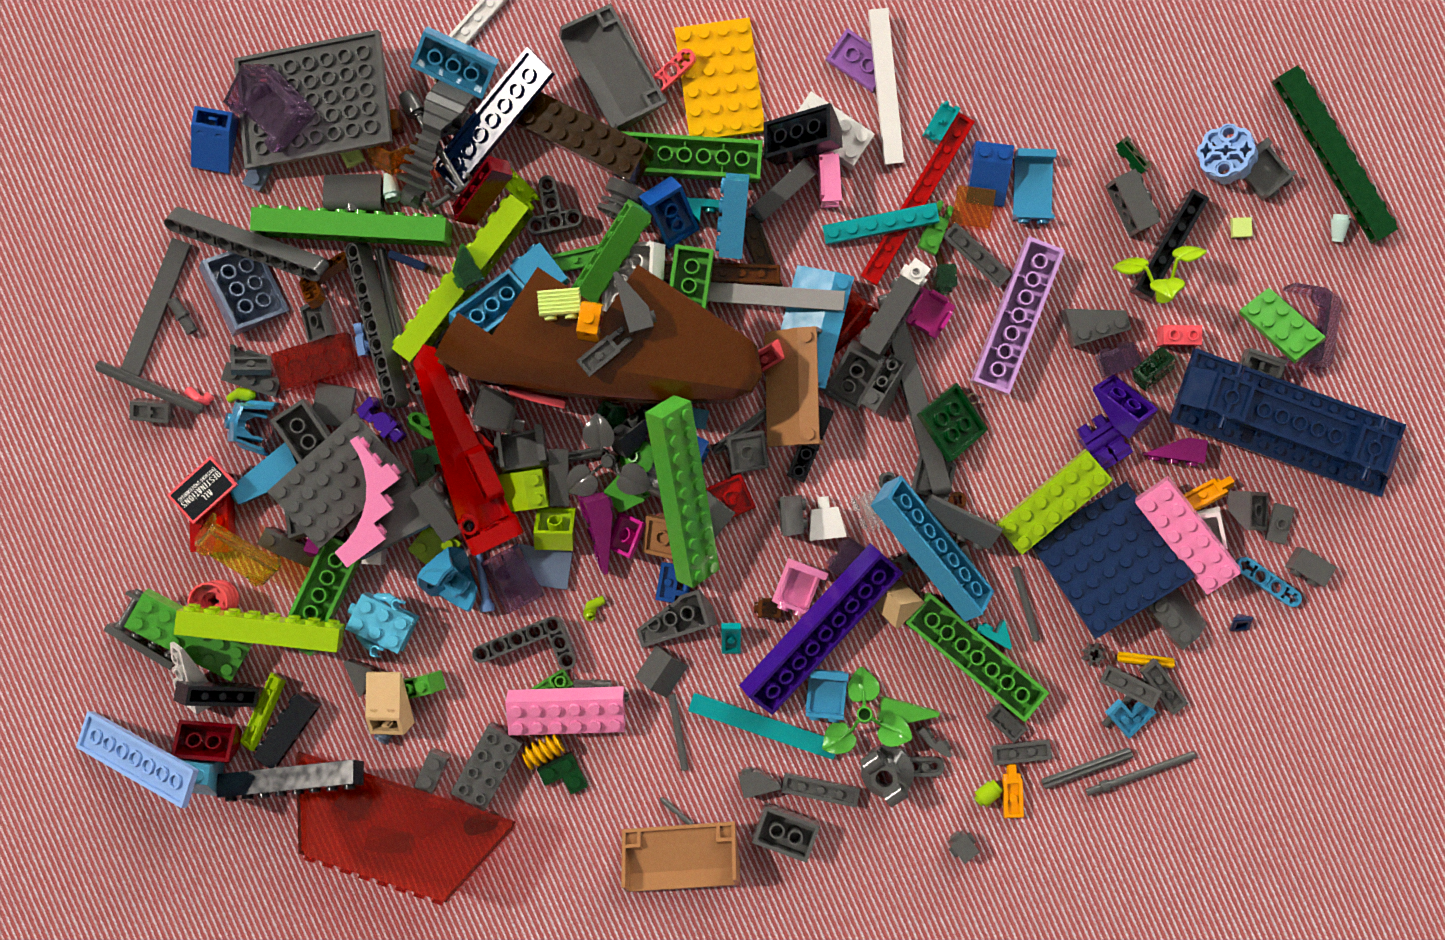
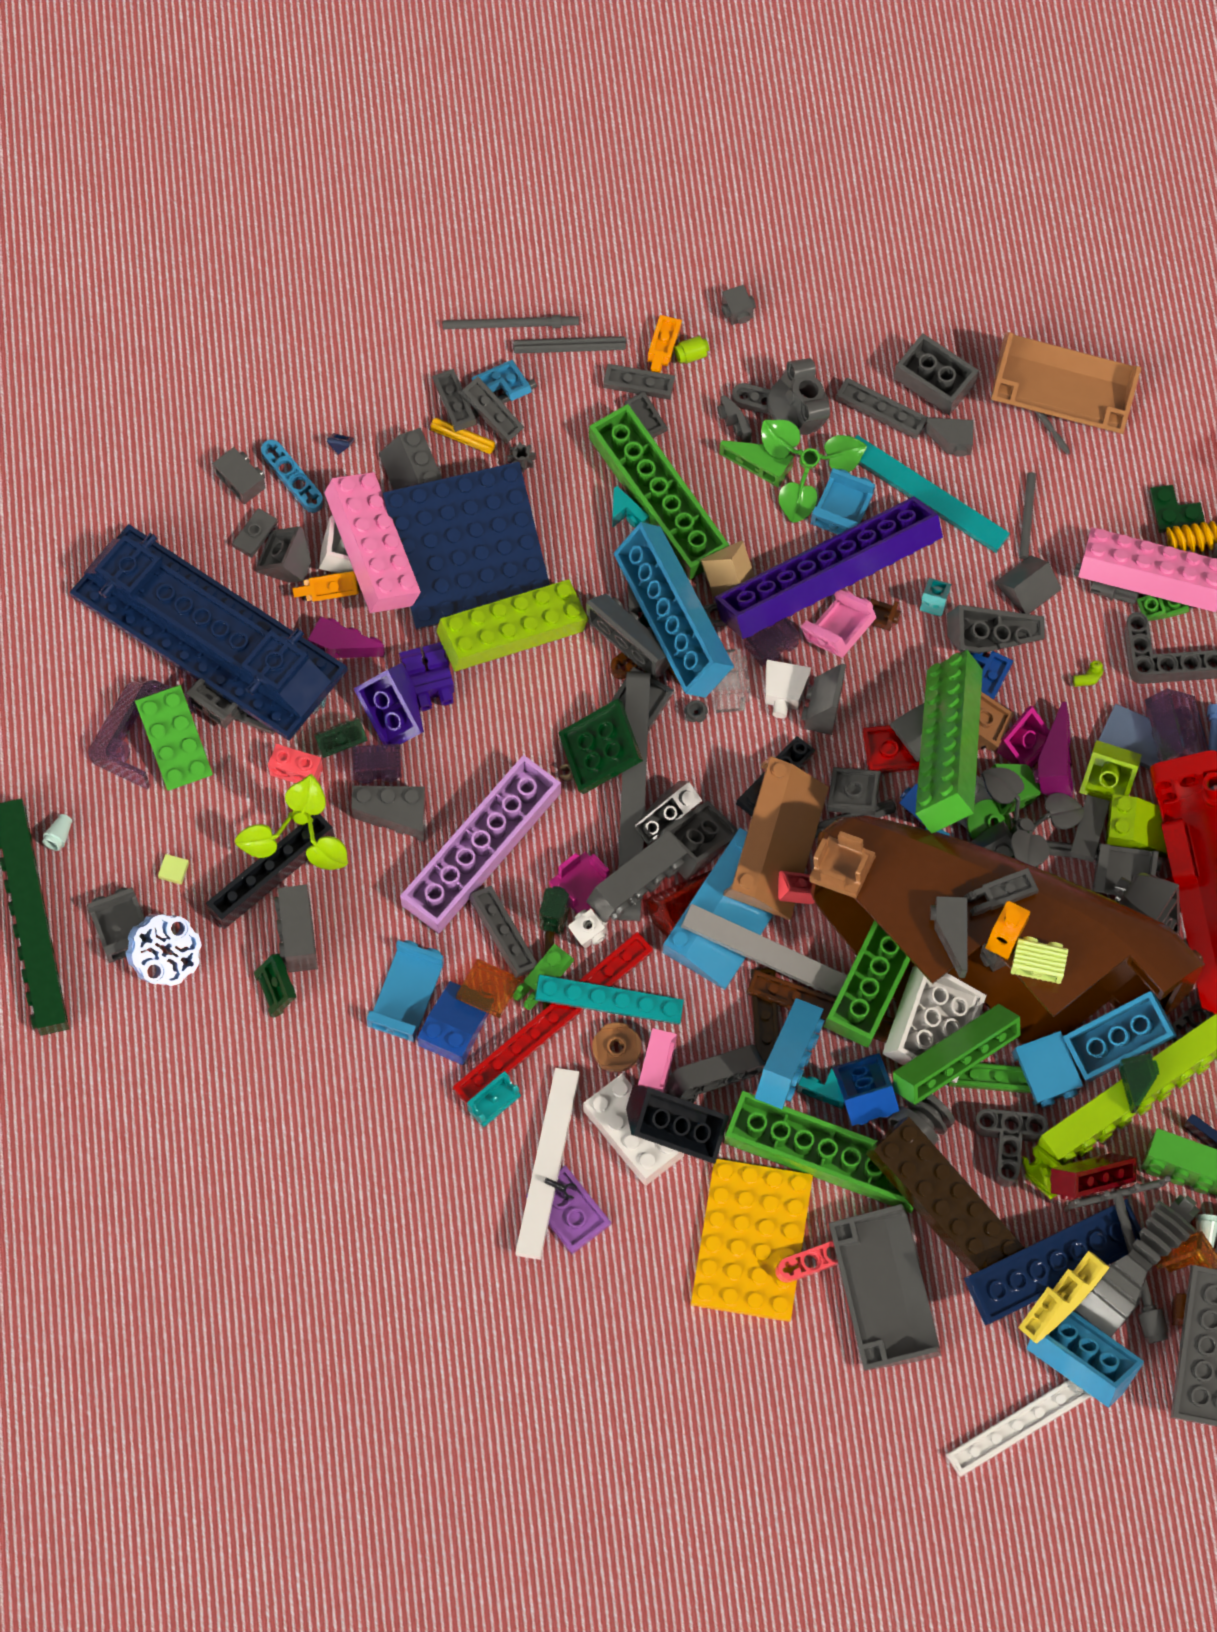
camera: 165 degrees left, 20 degrees down
(479, 90) = (1059, 1302): none -> light yellow slope
(735, 339) = (842, 864): none -> medium nougat panel
(868, 182) = (608, 1058): none -> medium nougat plate
(869, 68) = (561, 1187): none -> black hand
(1026, 604) = (578, 534): dark grey bar -> none

